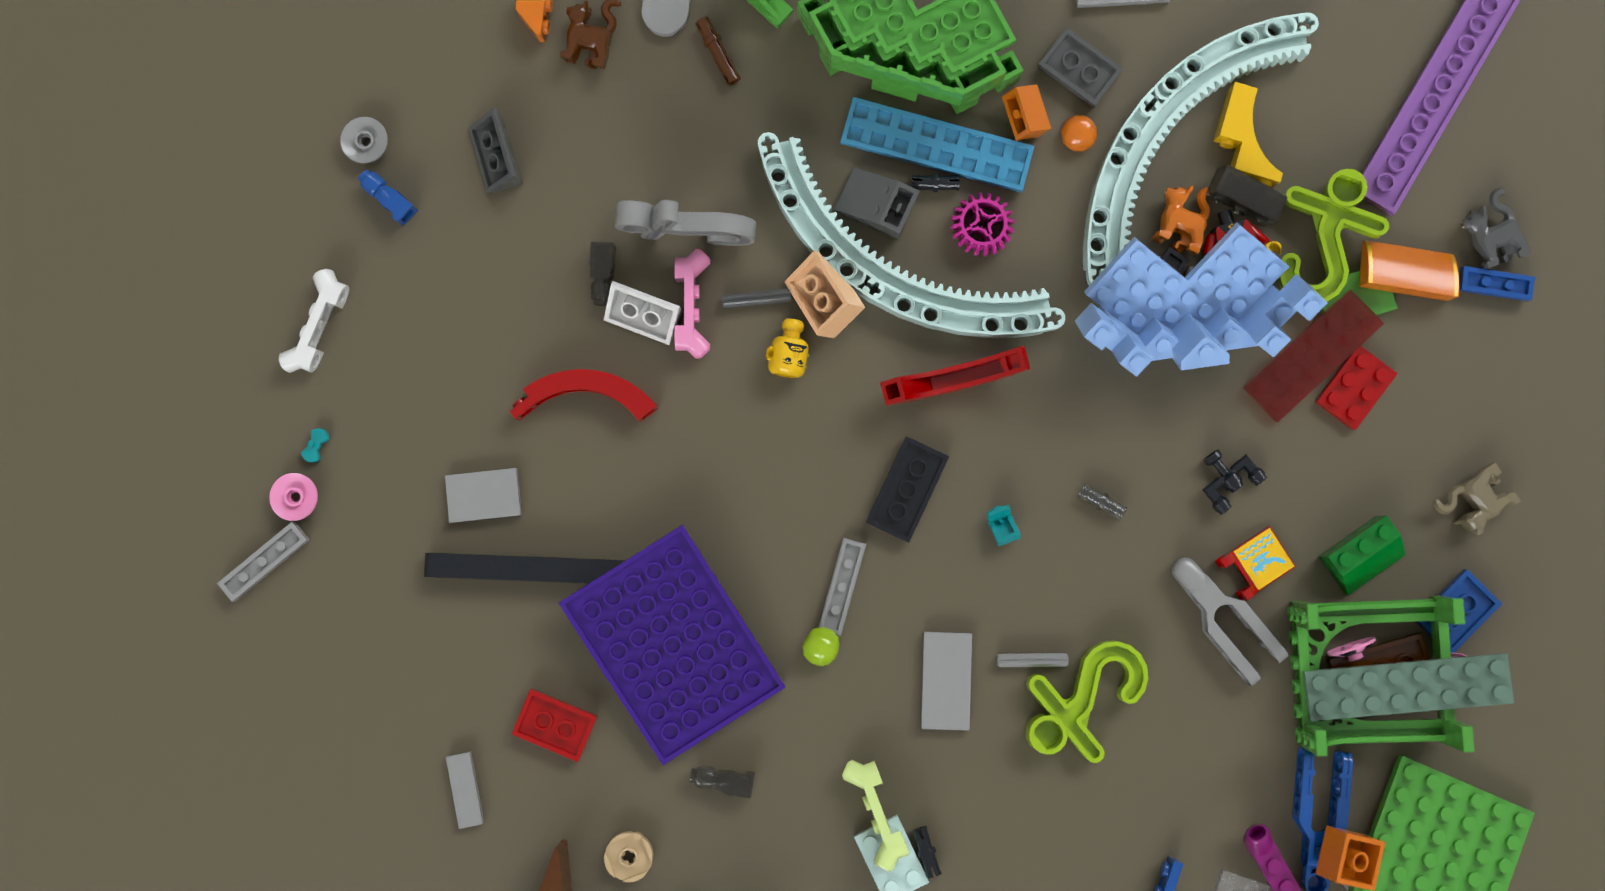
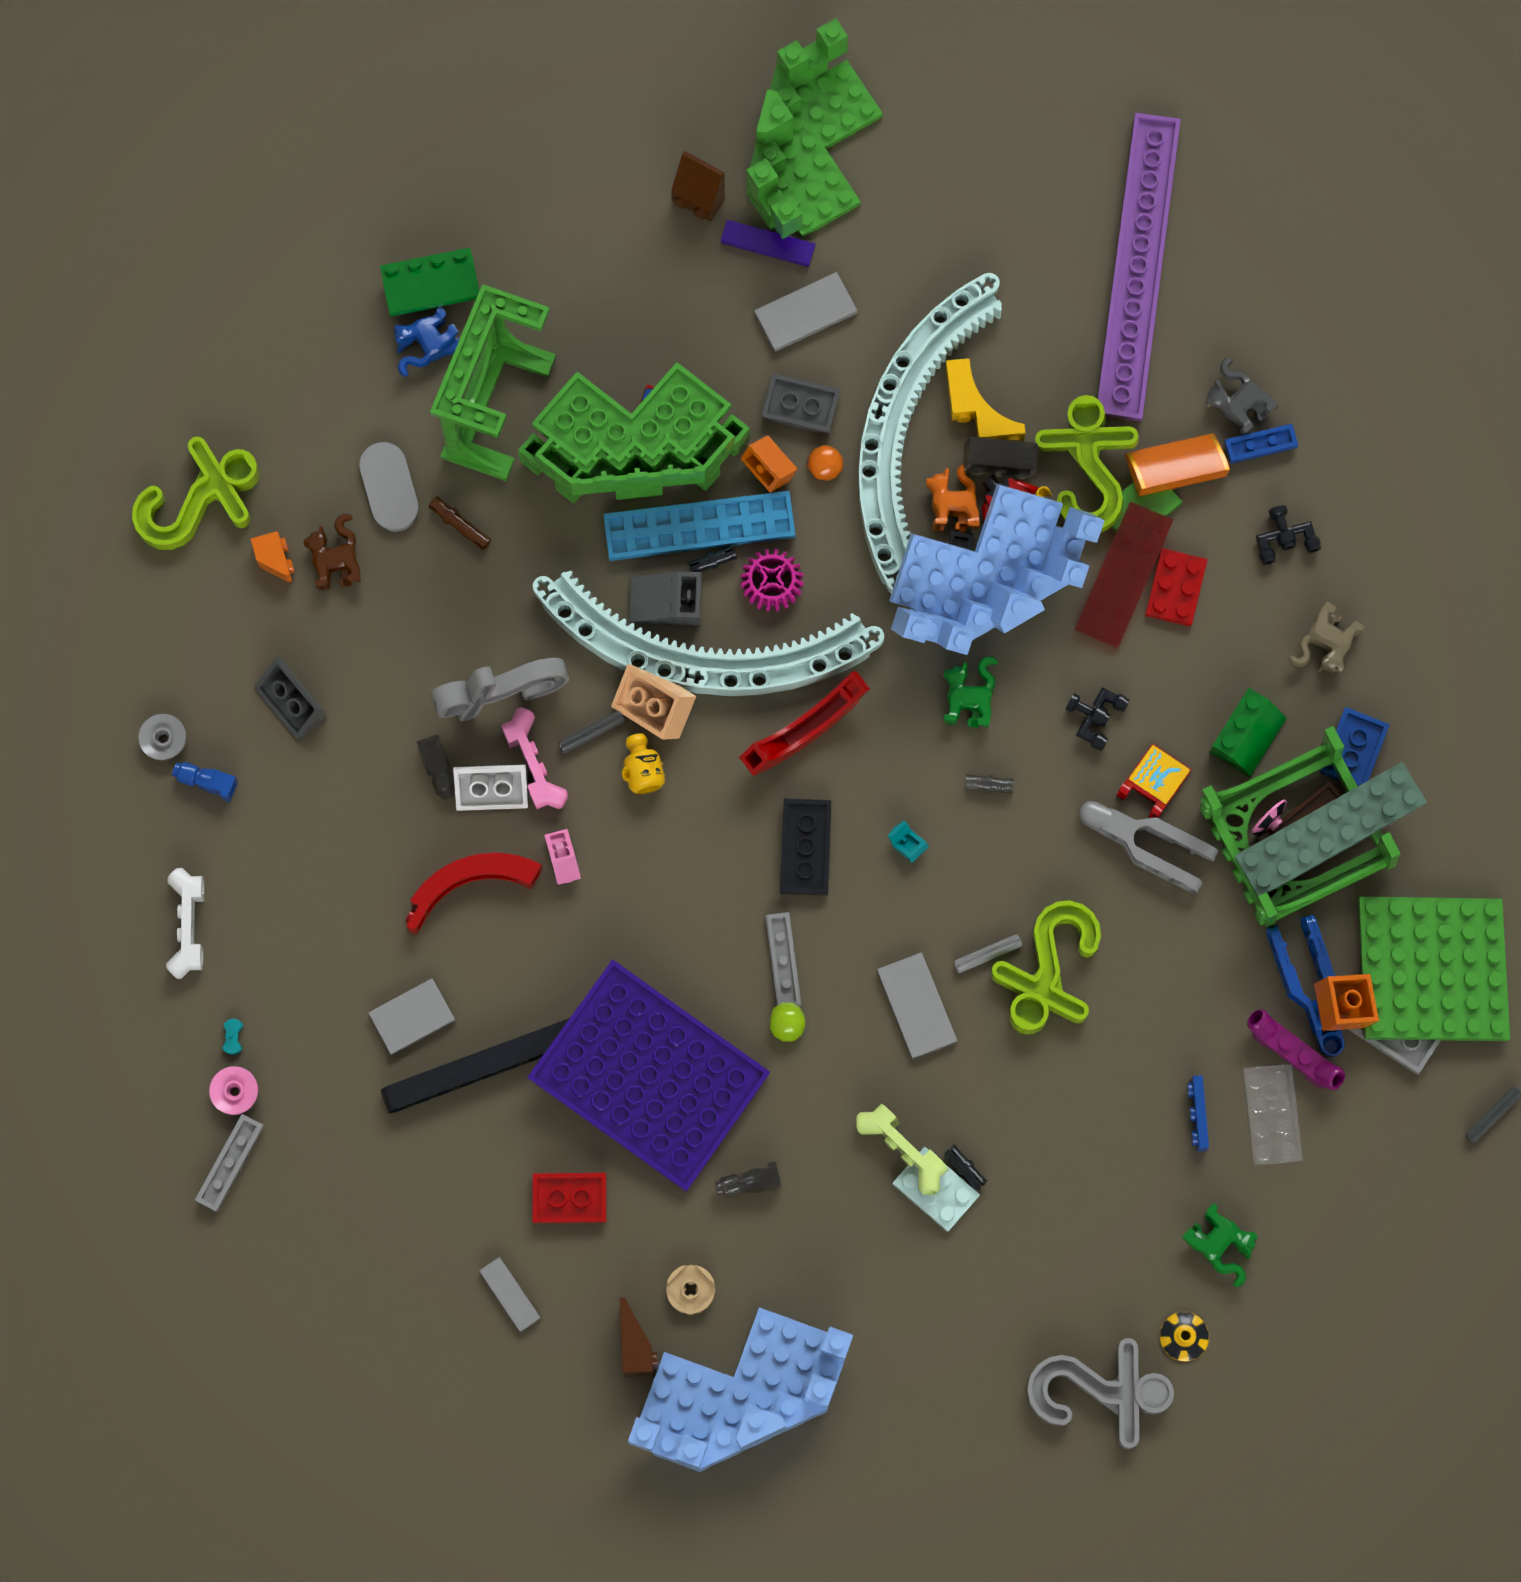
camera: 25 degrees left, 10 degrees down
(680, 405) = (562, 856): none -> bright pink arch
(1120, 414) = (970, 698): none -> green animal
(1480, 383) = (1285, 536): none -> black piece

